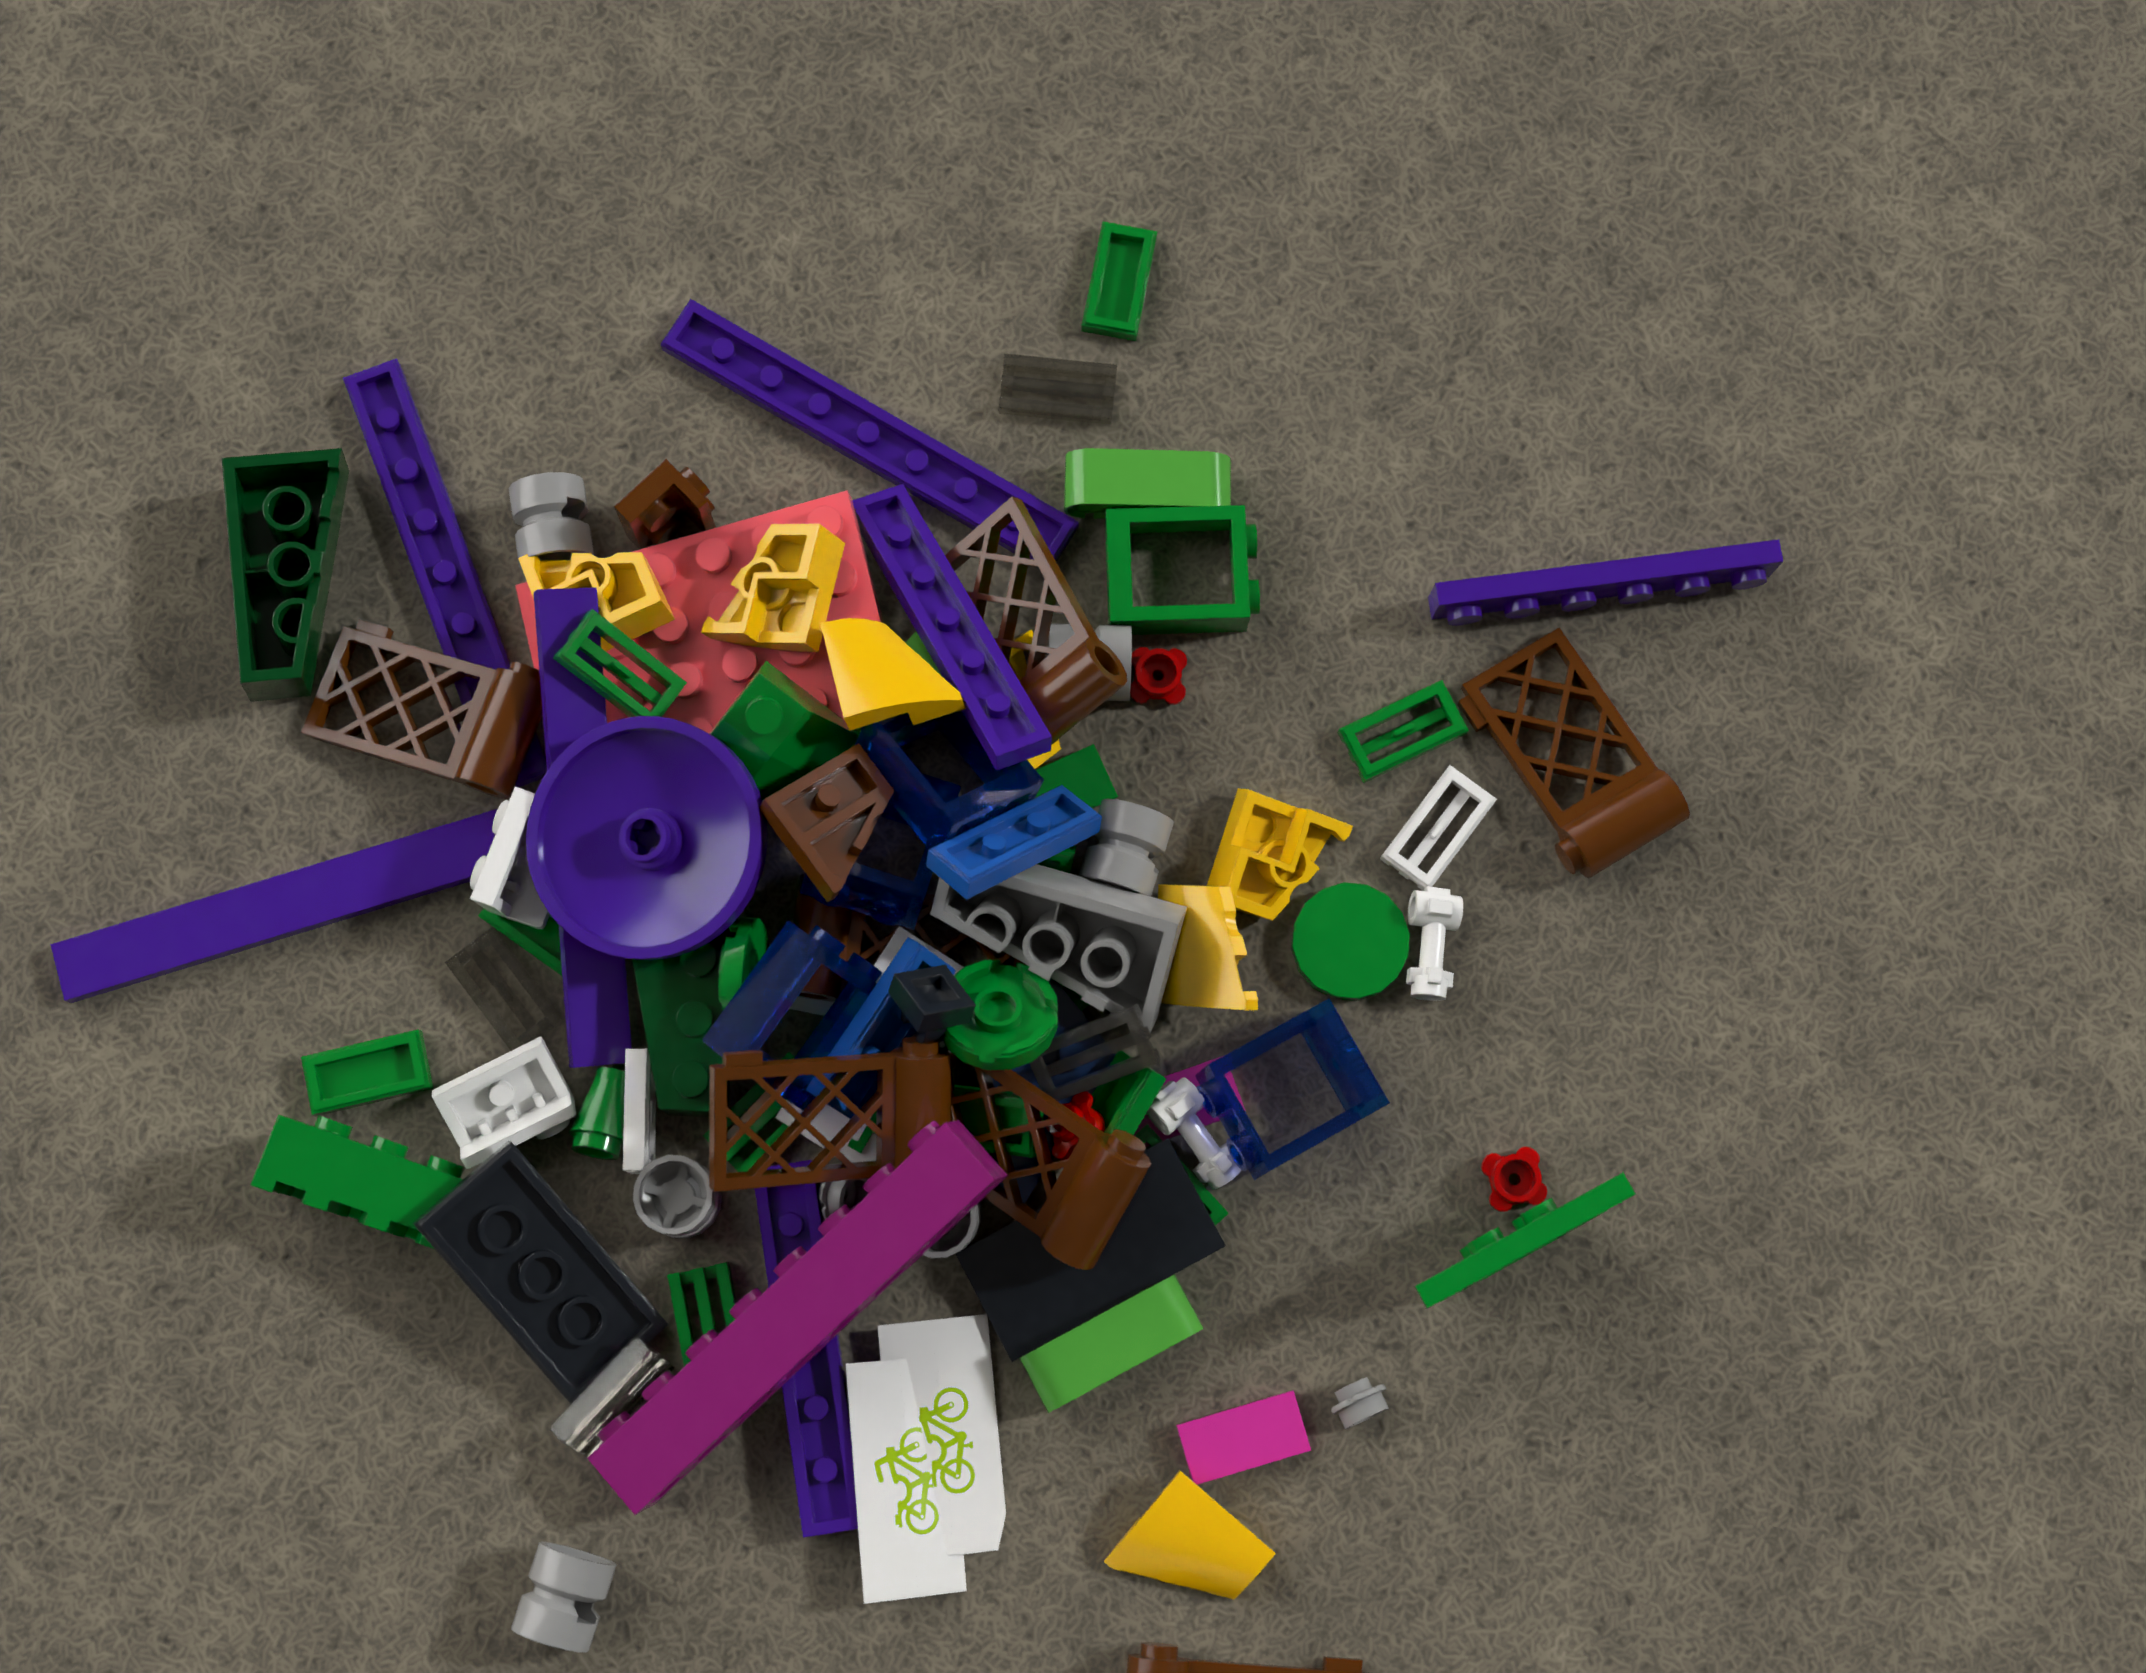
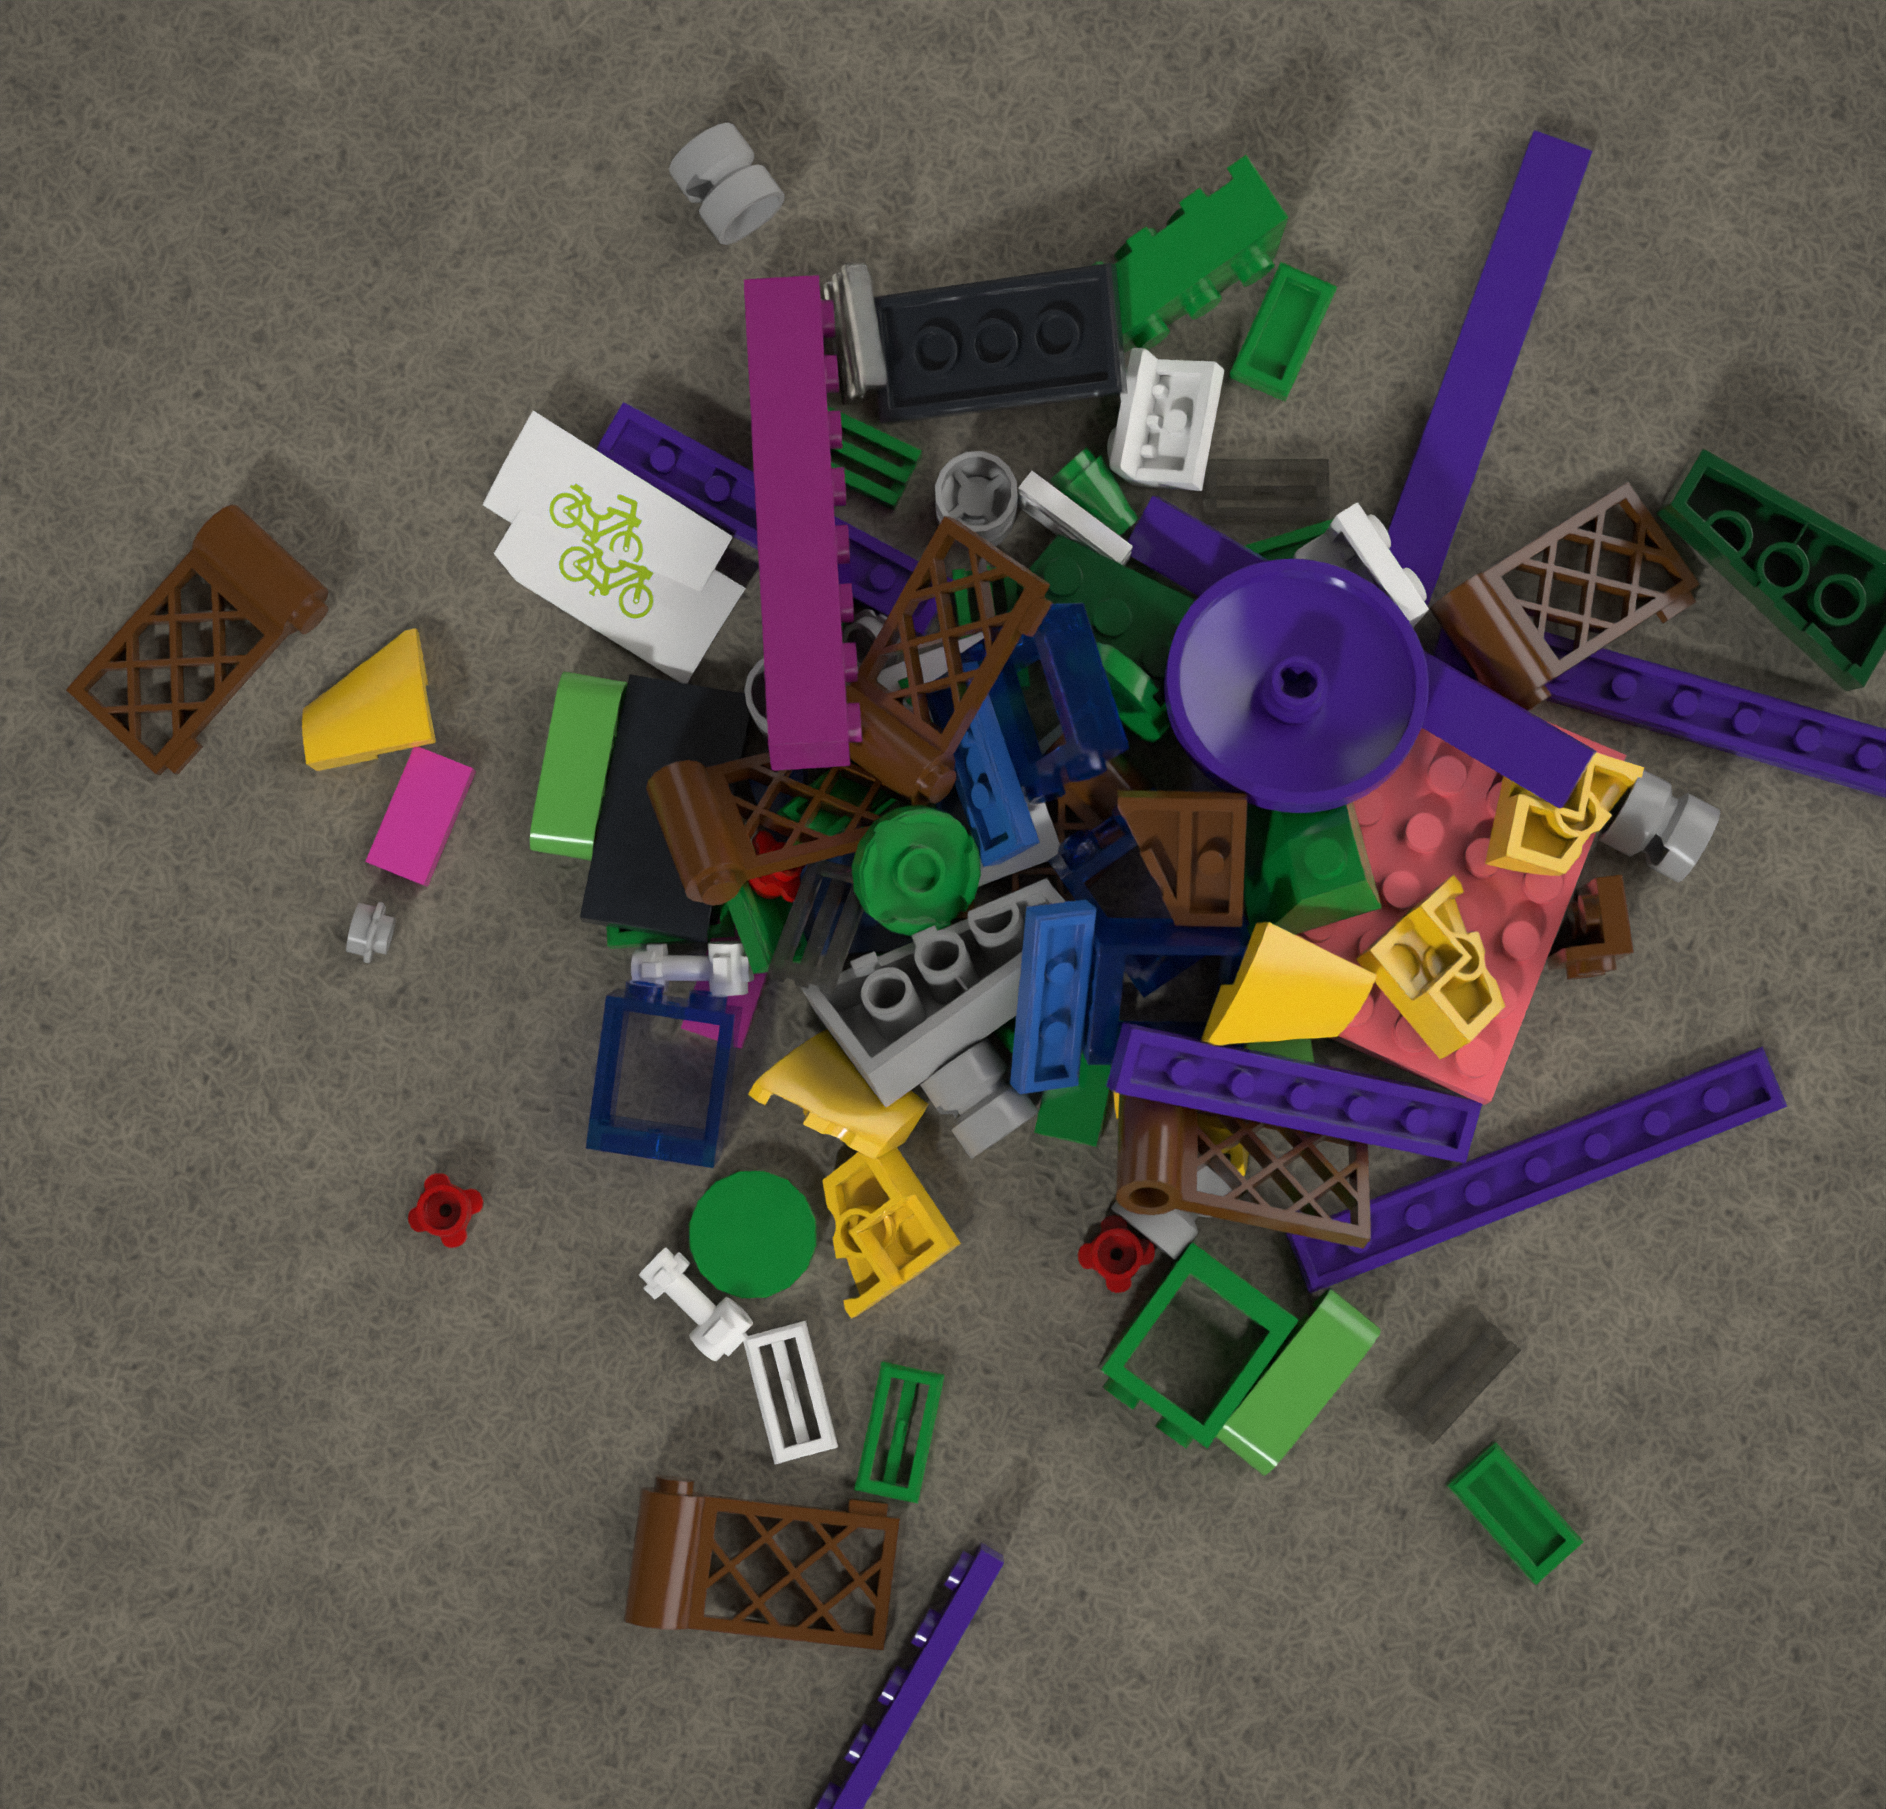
camera: 135 degrees right, 5 degrees up
(579, 640) = (1521, 758): green tile -> none
(931, 1001) = (967, 817): black tile -> none
(1533, 1231) = (380, 1183): green wing -> none

